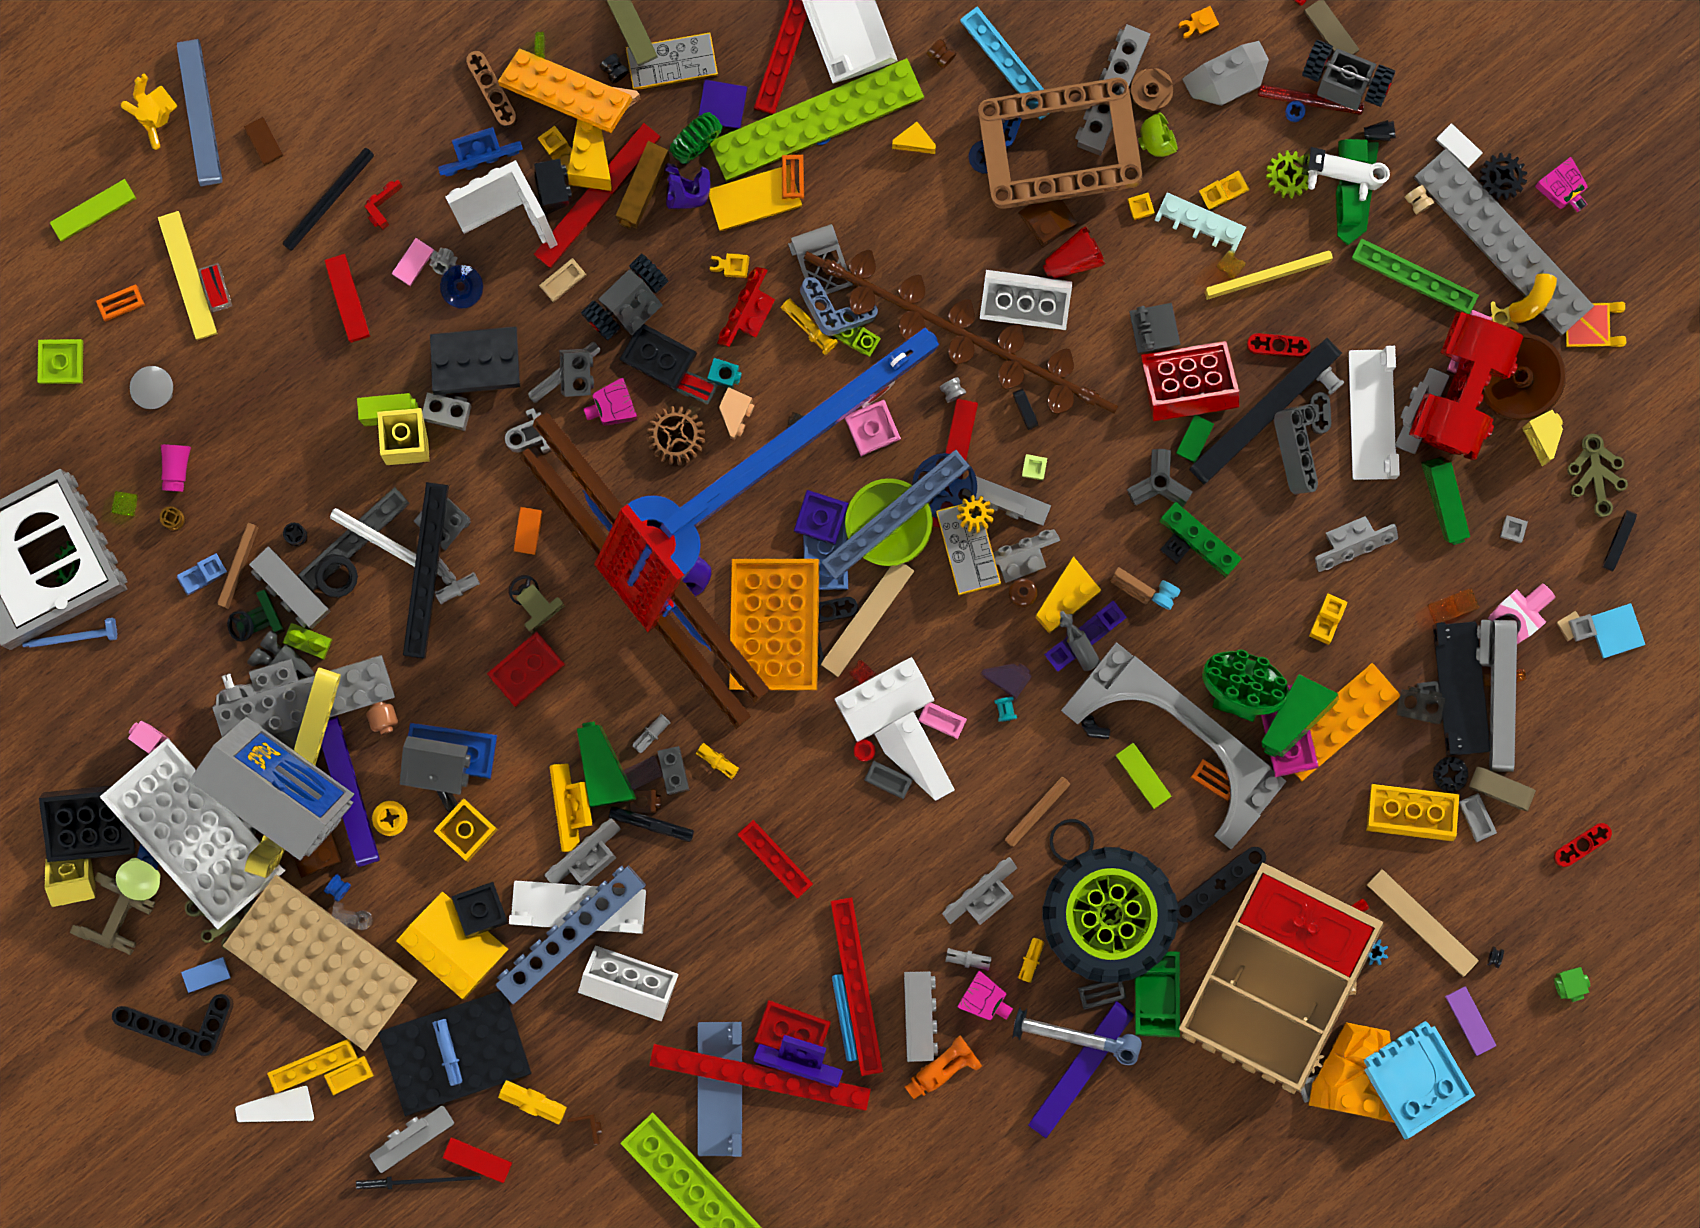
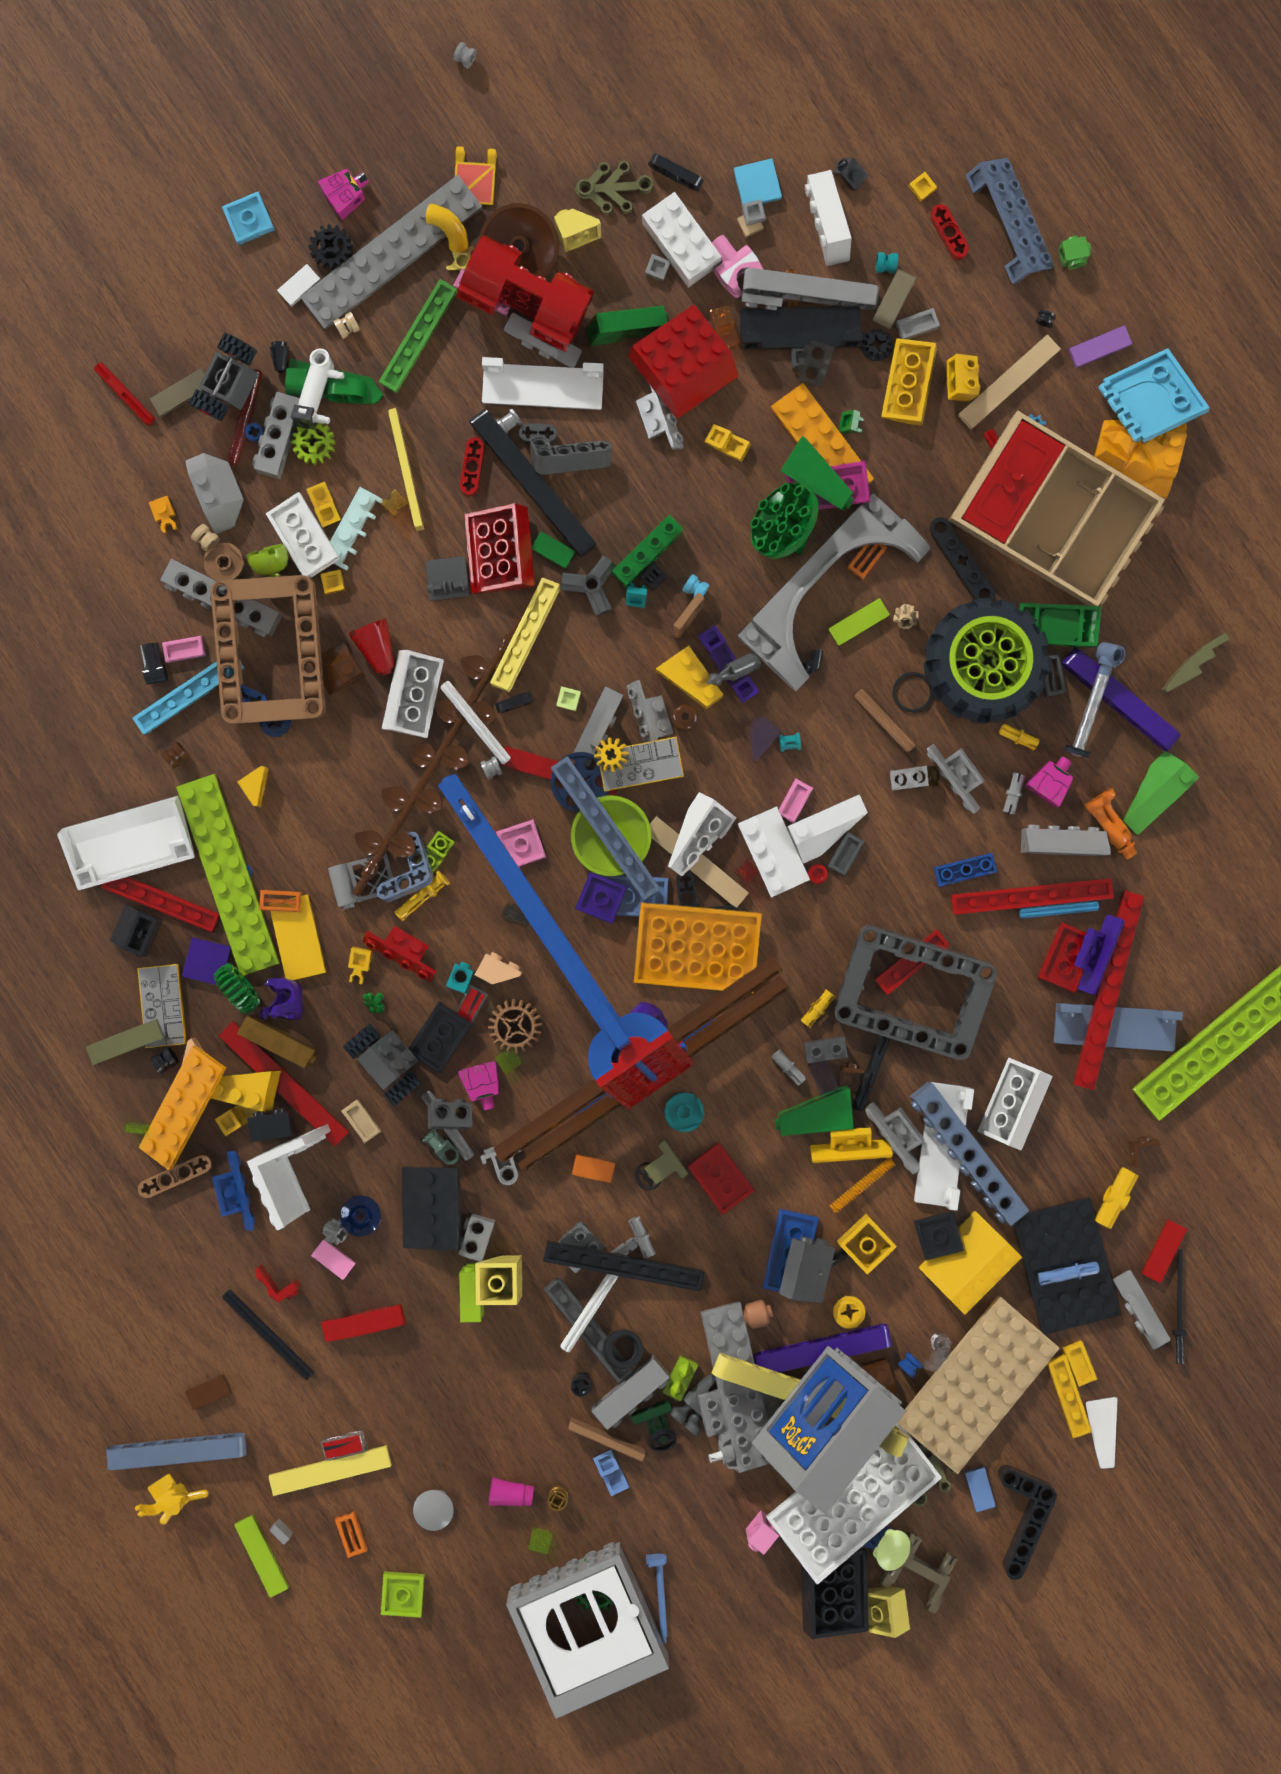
camera: 90 degrees left, 5 degrees up
(120, 228) = (281, 1531): none -> light grey tile
(539, 837) = (861, 1186): none -> light orange piece
(541, 366) = (441, 1146): none -> sand green connector
(595, 624) = (684, 1112): none -> teal tile
(637, 432) = (508, 1061): none -> clear neon green tile
(690, 284) = (374, 1002): none -> green plant
(701, 855) = (903, 1029): none -> dark grey beam
(749, 28) = (136, 931): none -> black slope
(877, 898) = (954, 873): none -> blue tile
(904, 619) = (702, 826): none -> white wedge
(977, 848) = (914, 777): none -> bracket
(986, 1120) = (1161, 787): none -> bright green wedge
(999, 368) = (475, 722): none -> white axle
(1031, 25) = (154, 669): none -> black piece
(1055, 55) = (184, 649): none -> bright pink tile
(1099, 415) = (525, 635): none -> light yellow plate
(1120, 1143) = (1190, 667): none -> olive slope
(1151, 531) = (636, 596): none -> teal tile
(1153, 825) = (906, 616): none -> tan gear
(1177, 67) = (204, 537): none -> tan wheel
(1187, 170) = (302, 536): none -> white tile
(1260, 136) = (274, 466): none -> light grey brick
(1361, 749) = (850, 421): none -> green tile
(1410, 564) = (684, 361): none -> red slope
(1420, 869) = (963, 377): none -> yellow brick
(1527, 87) = (248, 218): none -> medium azure tile
(1541, 777) = (886, 262): none -> teal wheel
(1545, 551) = (681, 239): none -> white brick
(1584, 709) = (829, 217): none -> white wedge
(1604, 915) = (1015, 215): none -> sand blue bracket
(1630, 812) = (922, 186): none -> yellow tile
(1637, 731) = (850, 172): none -> black bracket

